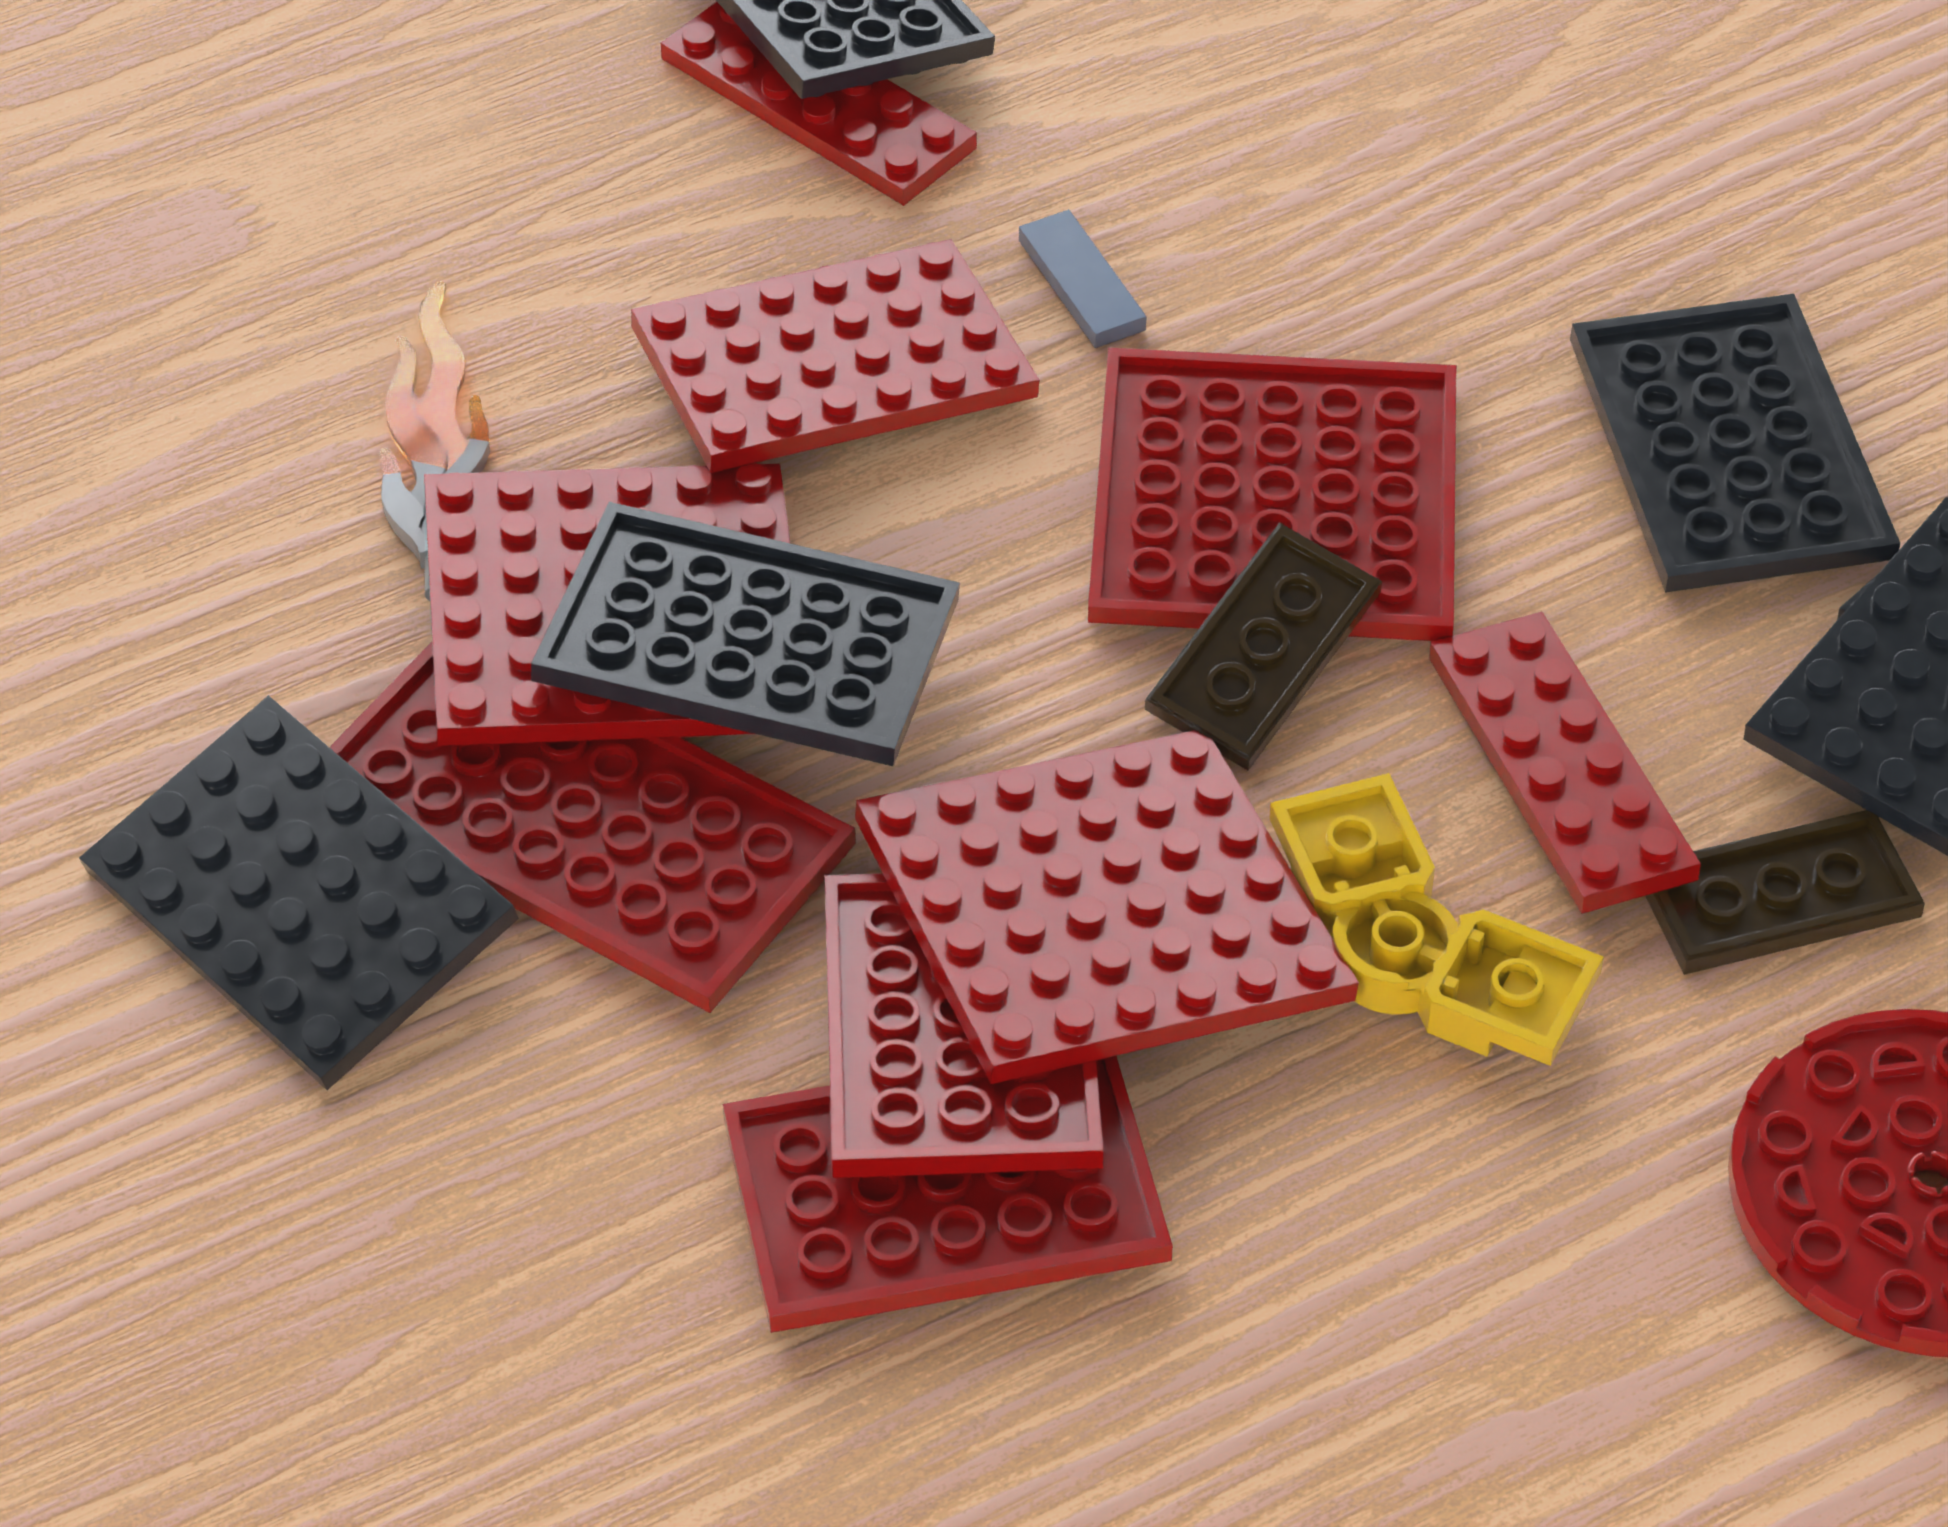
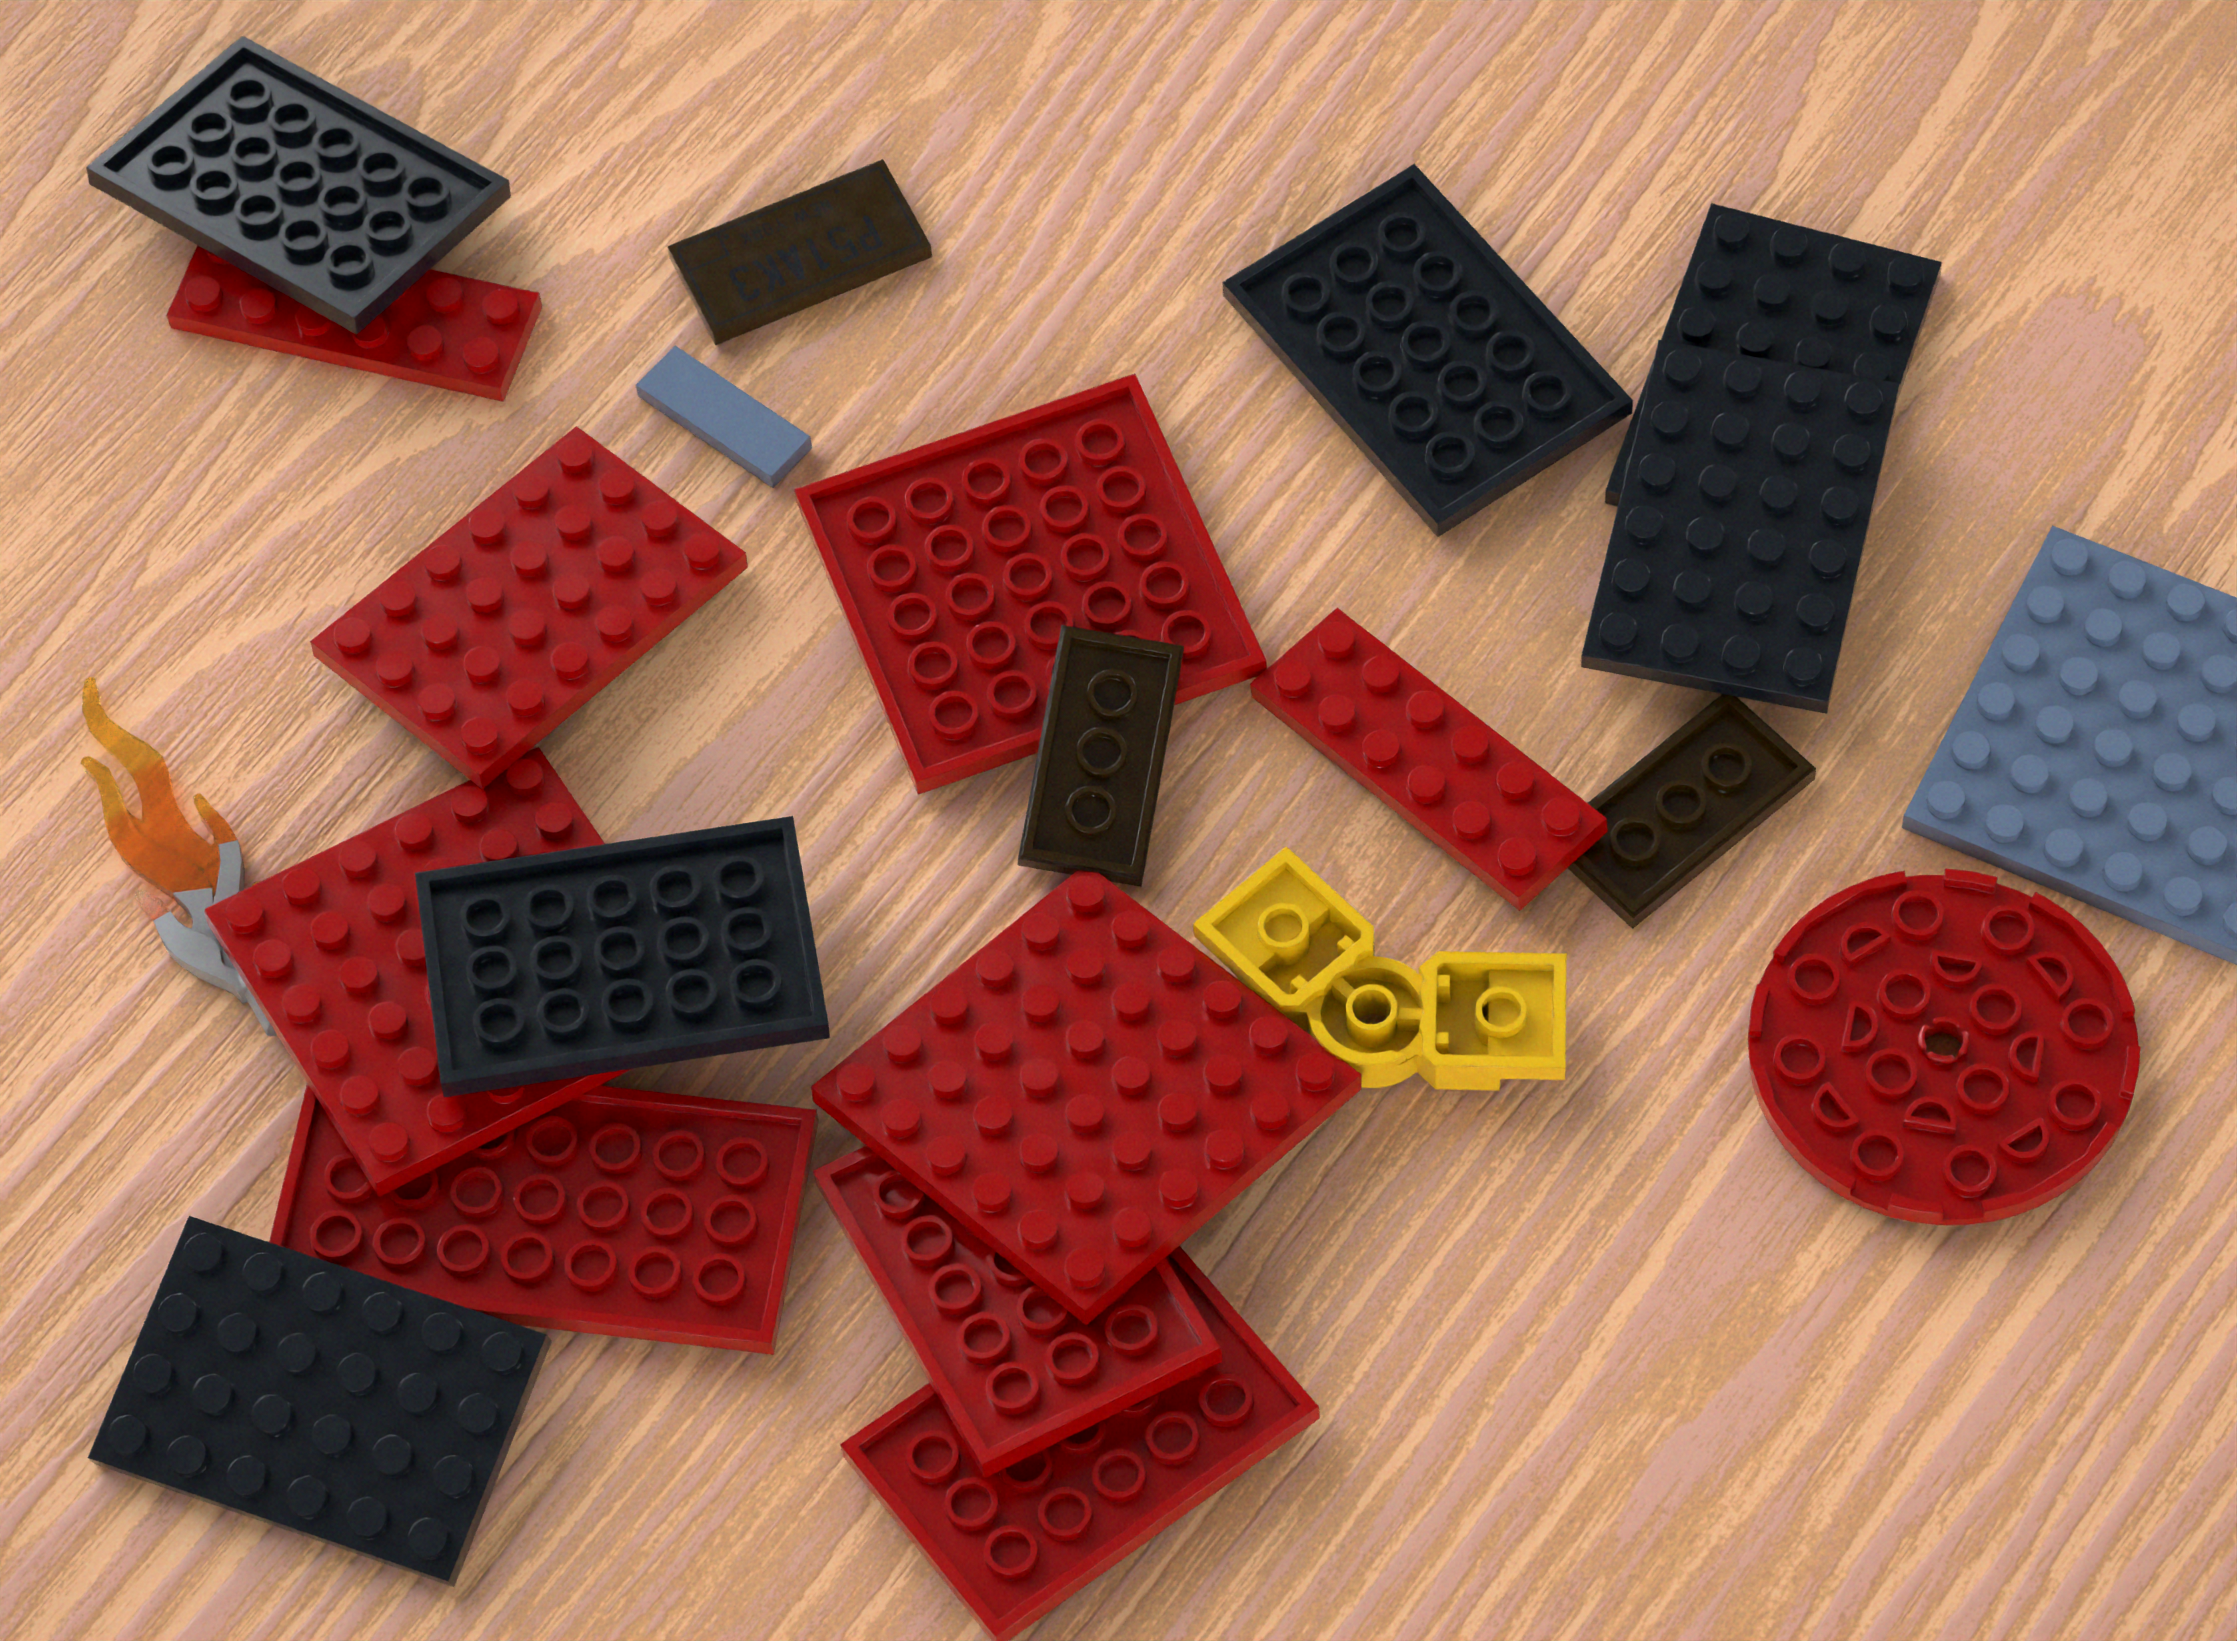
camera: 20 degrees left, 10 degrees up
(1216, 180) = (799, 251): none -> dark brown tile

